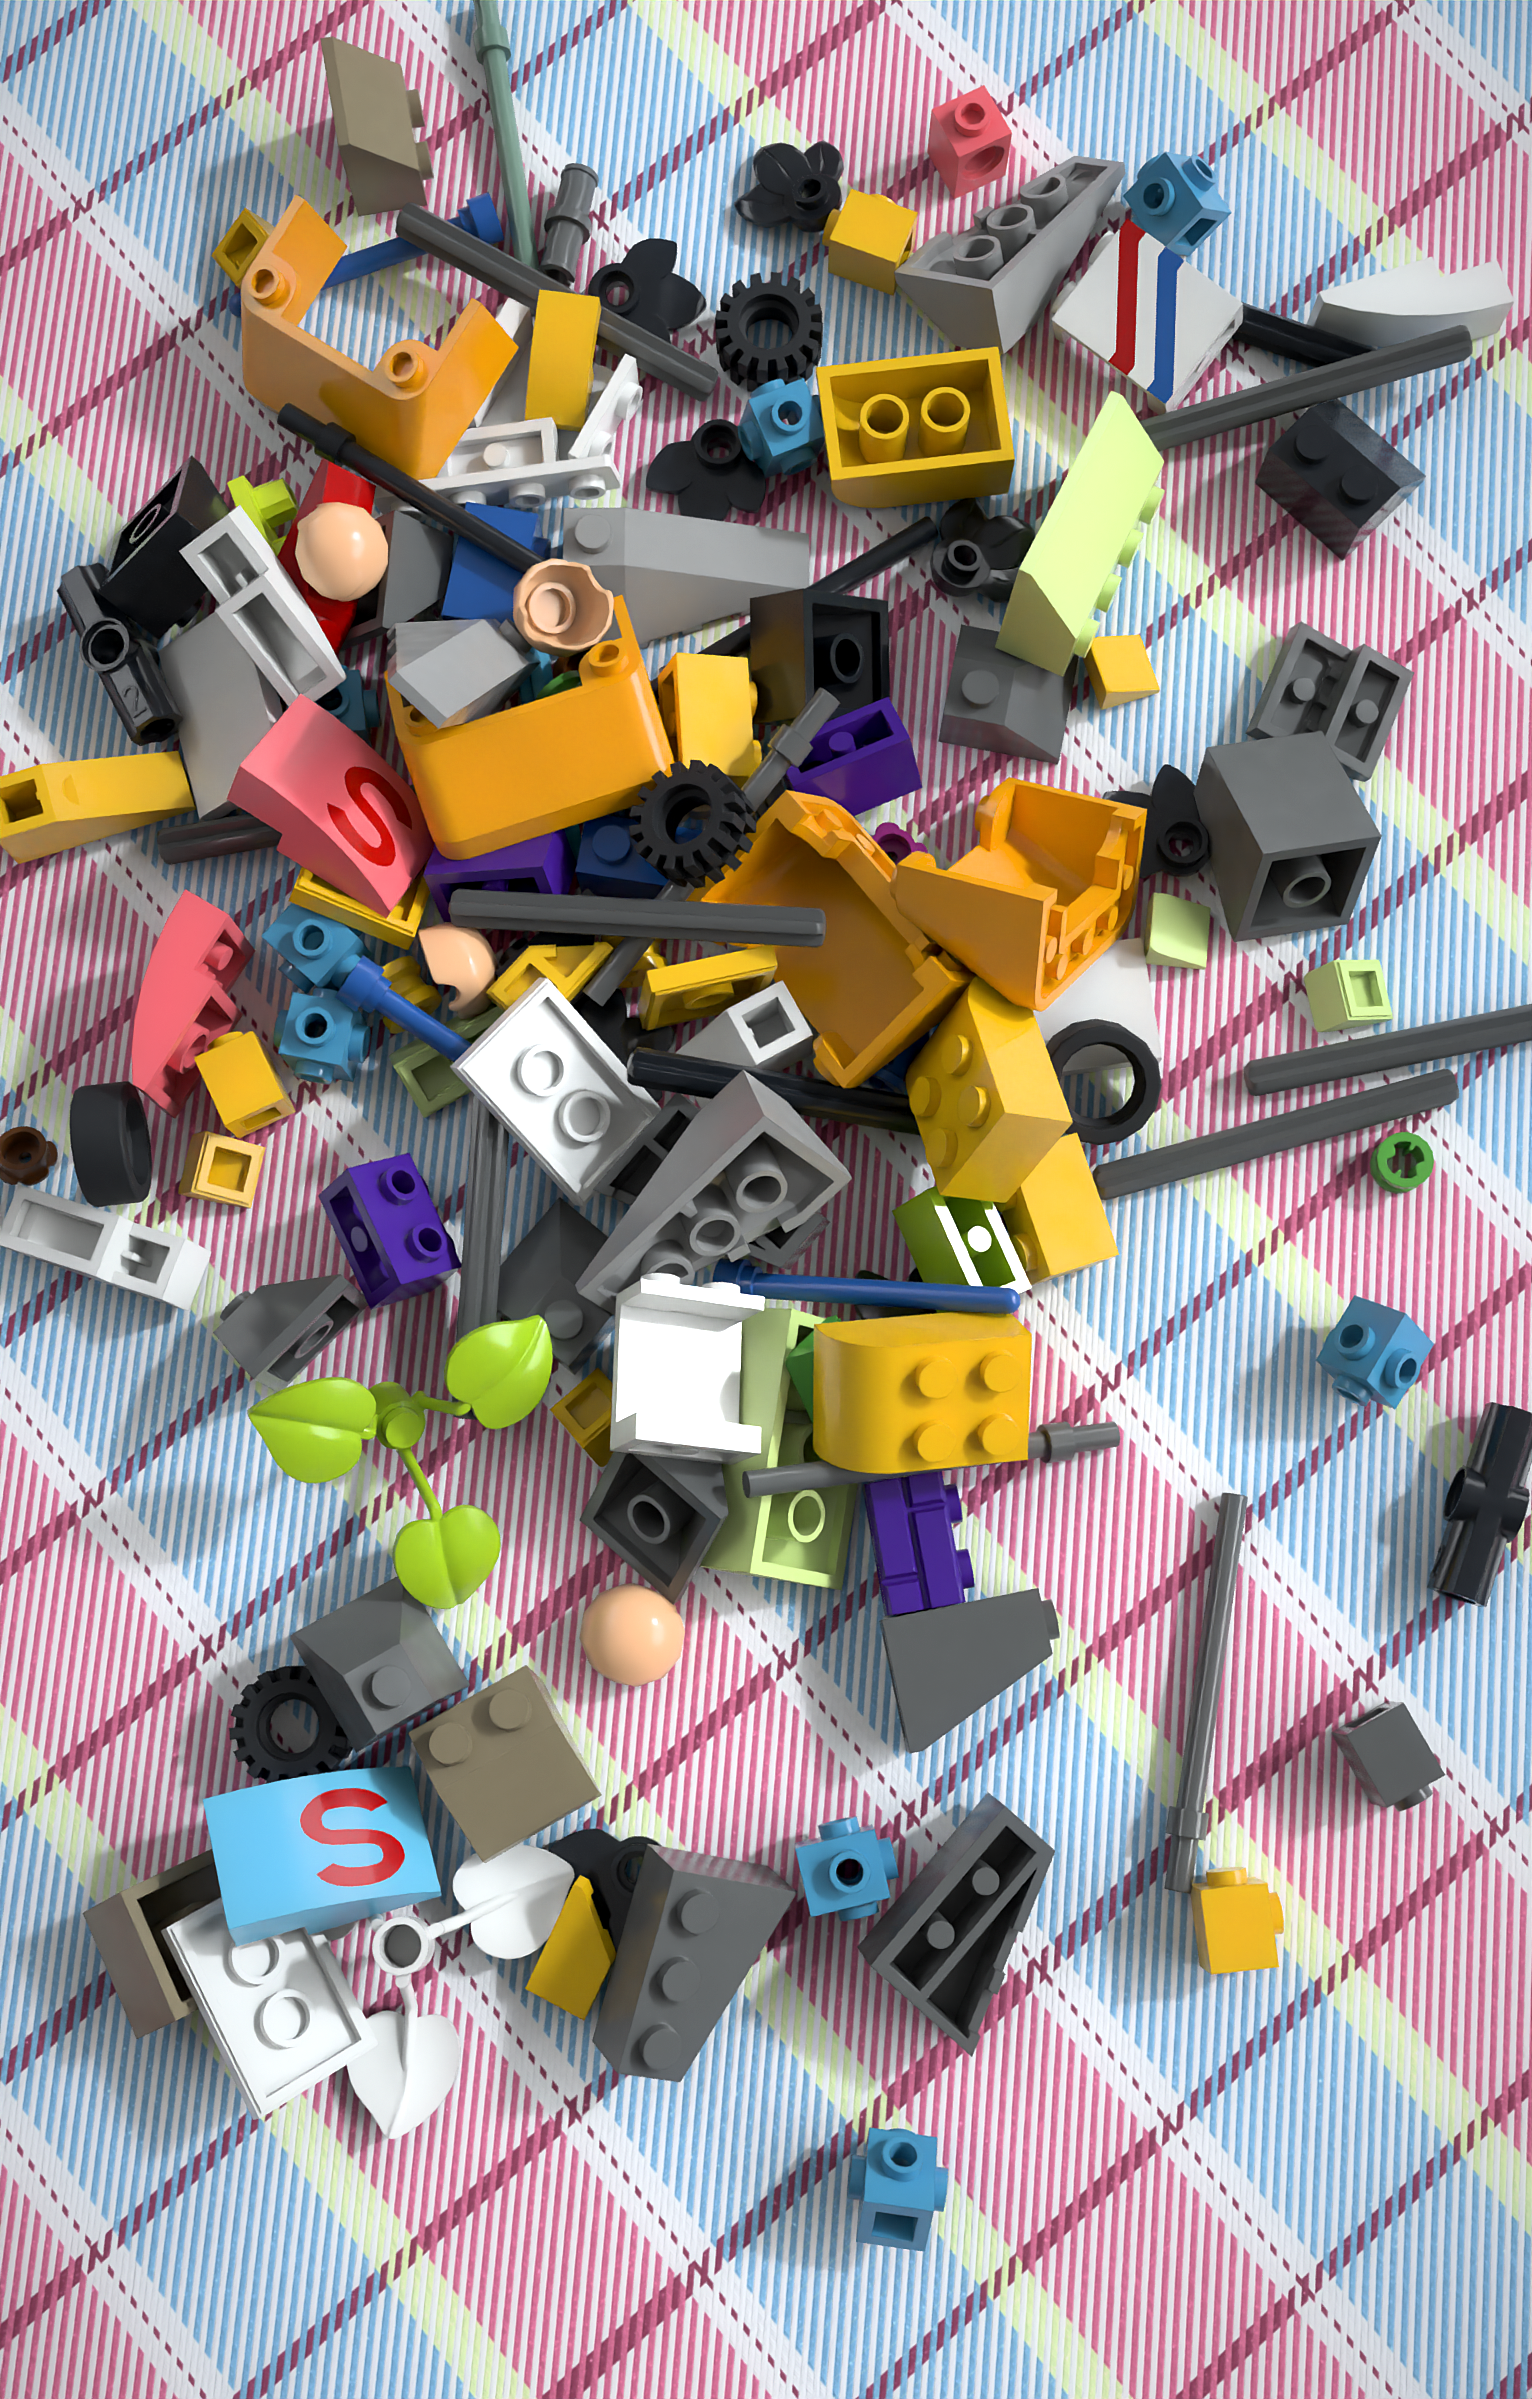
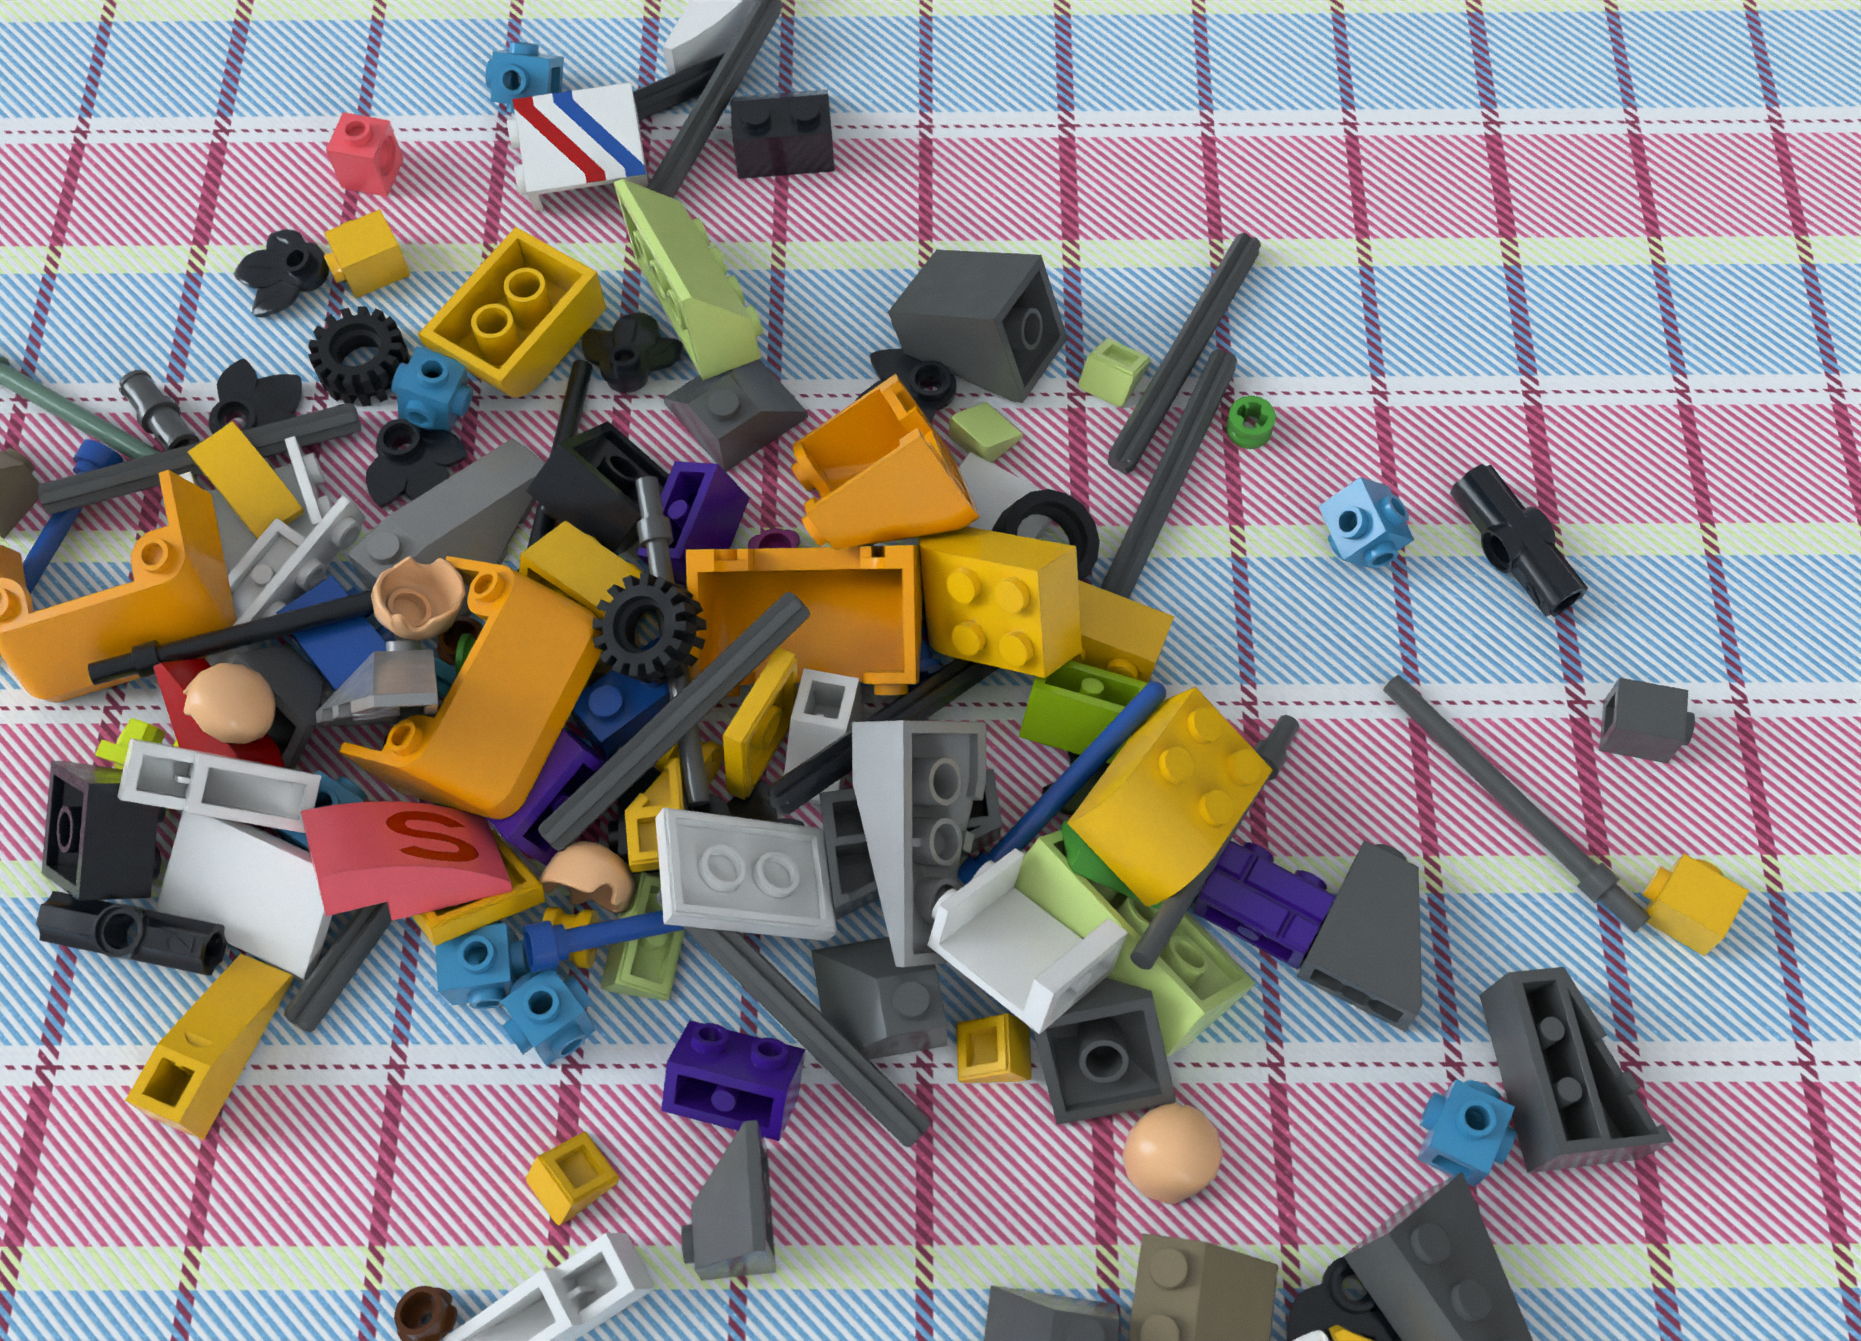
camera: 50 degrees left, 15 degrees down
(110, 1144) = (483, 1231): black tyre -> none
(186, 999) = (431, 1079): coral slope -> none
(243, 1083) = (528, 1098): yellow brick -> none
(320, 1424) = (846, 1217): lime plant -> none
(897, 2188) = (1734, 1279): dark azure brick -> none
(1005, 269) = (463, 192): light grey wedge -> none
(1120, 670) = (785, 335): yellow slope -> none
(1333, 691) = (906, 235): dark grey slope -> none

